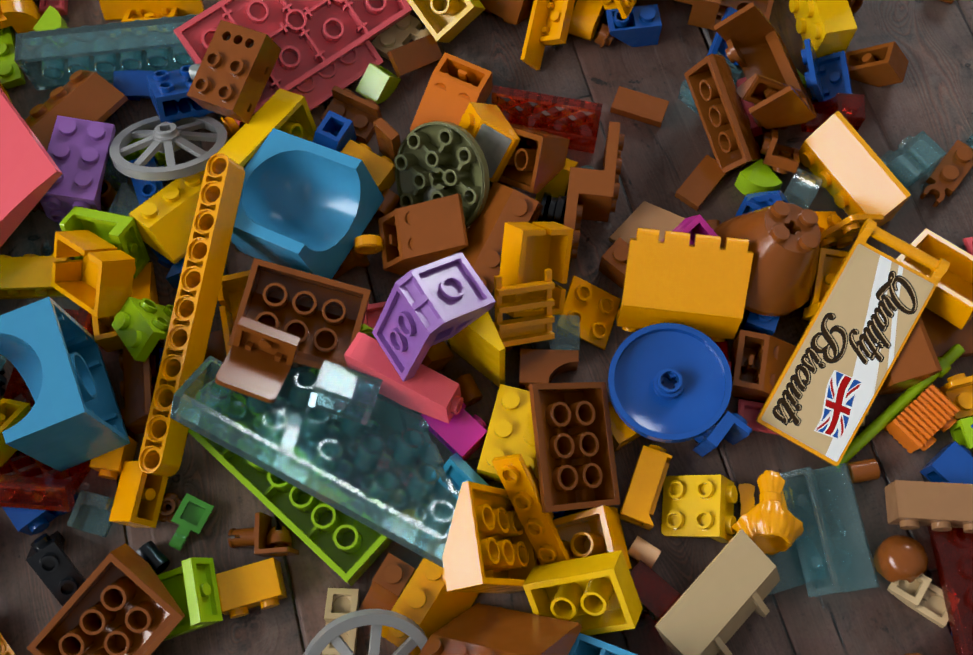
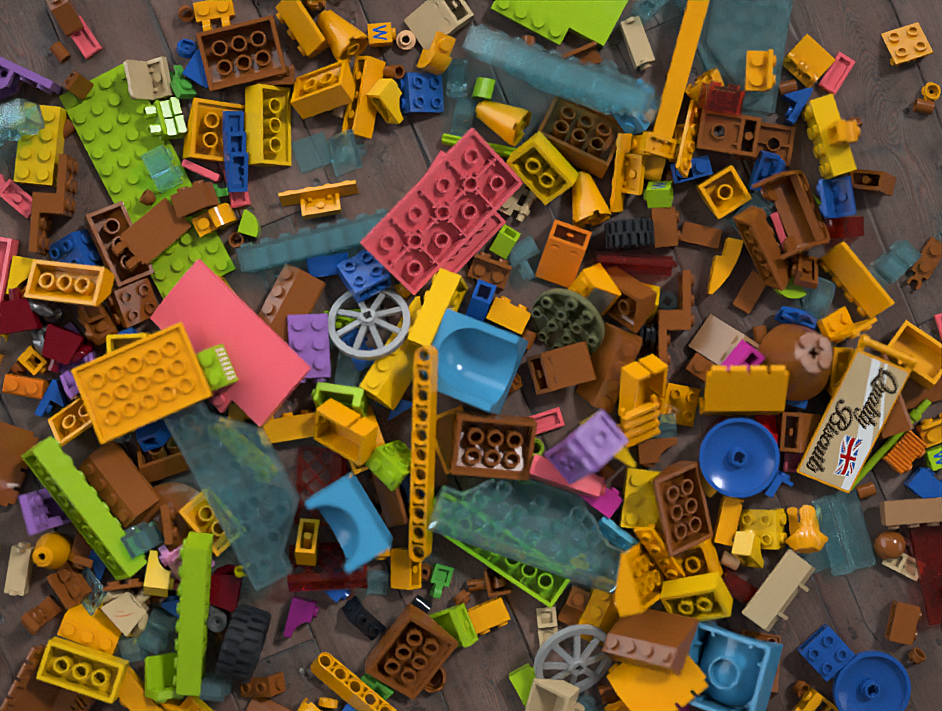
camera: 10 degrees left, 20 degrees up
(219, 552) = (462, 597): none -> dark orange plate
(233, 71) = (411, 271): dark orange piece -> none
(258, 360) = (476, 487): dark orange bracket -> none
(345, 392) = (533, 494): clear light blue brick -> none
(368, 244) = (524, 379): light orange tile -> none
(387, 138) = (524, 296): dark orange tile -> none
(398, 98) = (521, 253): none -> clear light blue brick
(414, 55) = (529, 216): dark orange tile -> none
(495, 48) = (587, 202): none -> light orange cone
(544, 73) = (629, 234): none -> black tyre
(588, 46) = (659, 194): none -> lime brick
(592, 83) = (665, 227): none -> dark orange brick
(668, 140) = (723, 264): none -> light orange slope
(672, 47) = (723, 191): none -> light orange slope
(672, 532) = (747, 549): none -> yellow arch
(759, 88) = (790, 236): dark orange slope -> none

